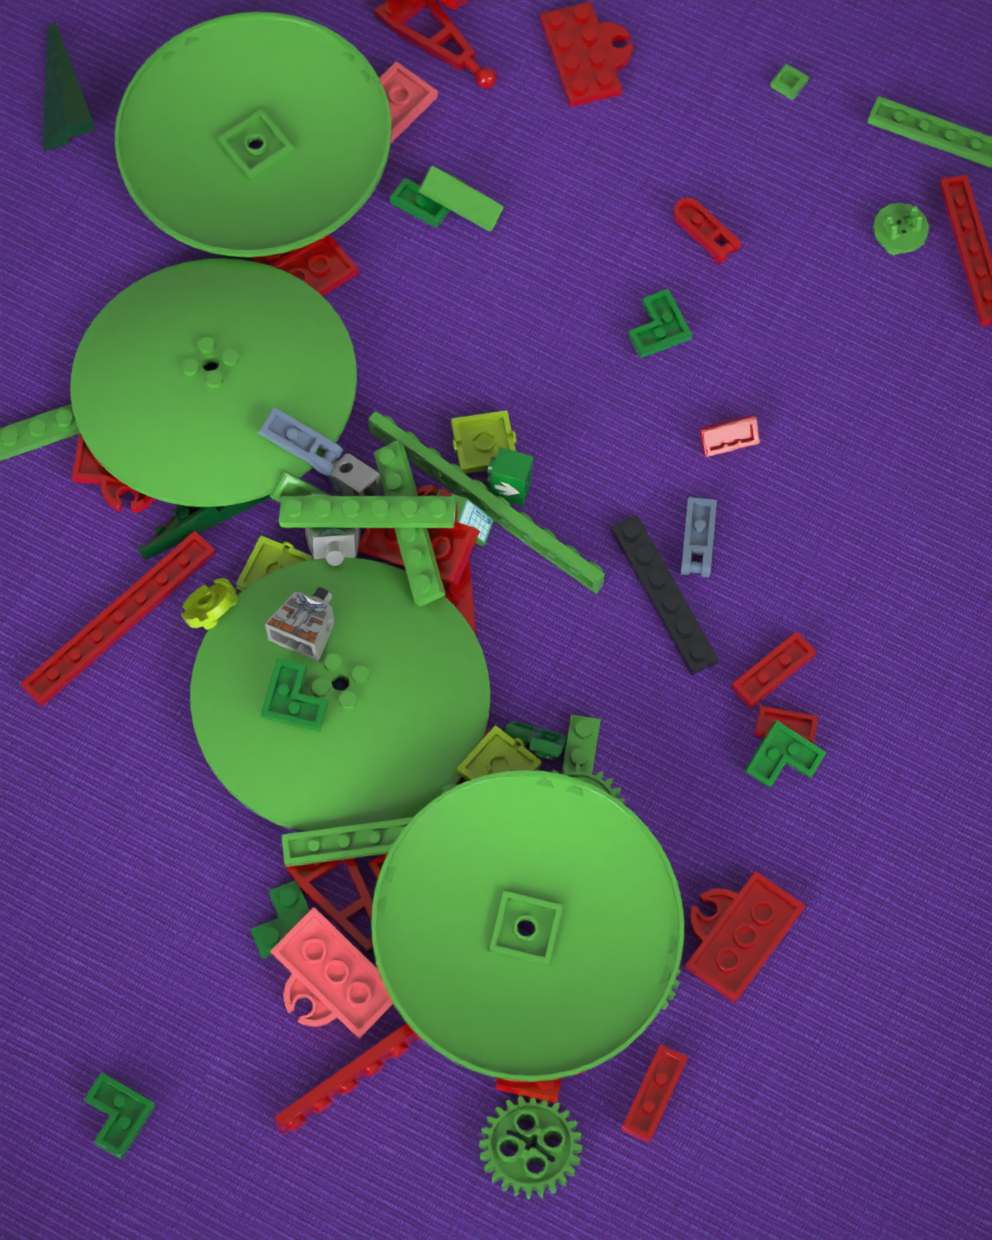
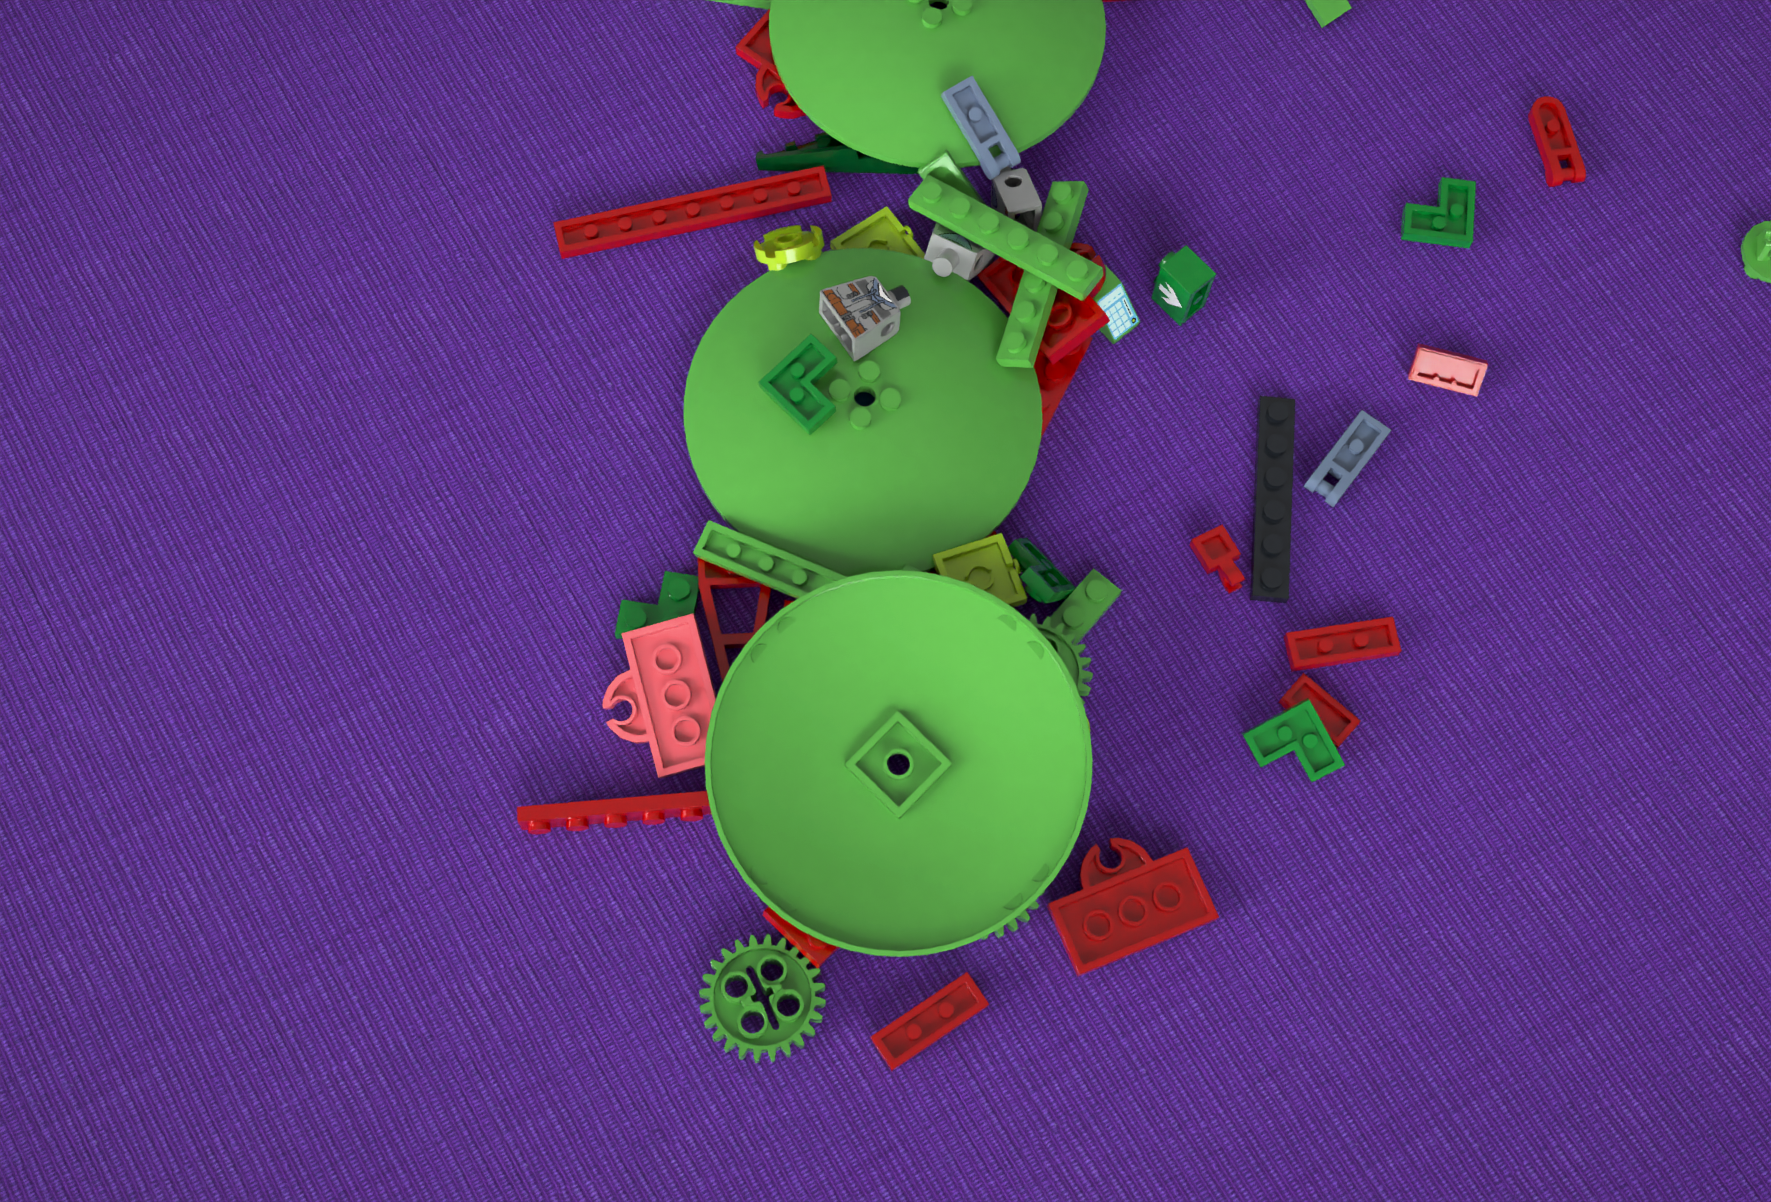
camera: 30 degrees right, 5 degrees up
(126, 1110) = (379, 712): green plate -> none
(480, 438) = (1175, 226): lime plate -> none
(497, 507) = (1149, 310): bright green plate -> none
(650, 654) = (1218, 552): none -> red plate
(789, 81) = (1744, 37): bright green tile -> none

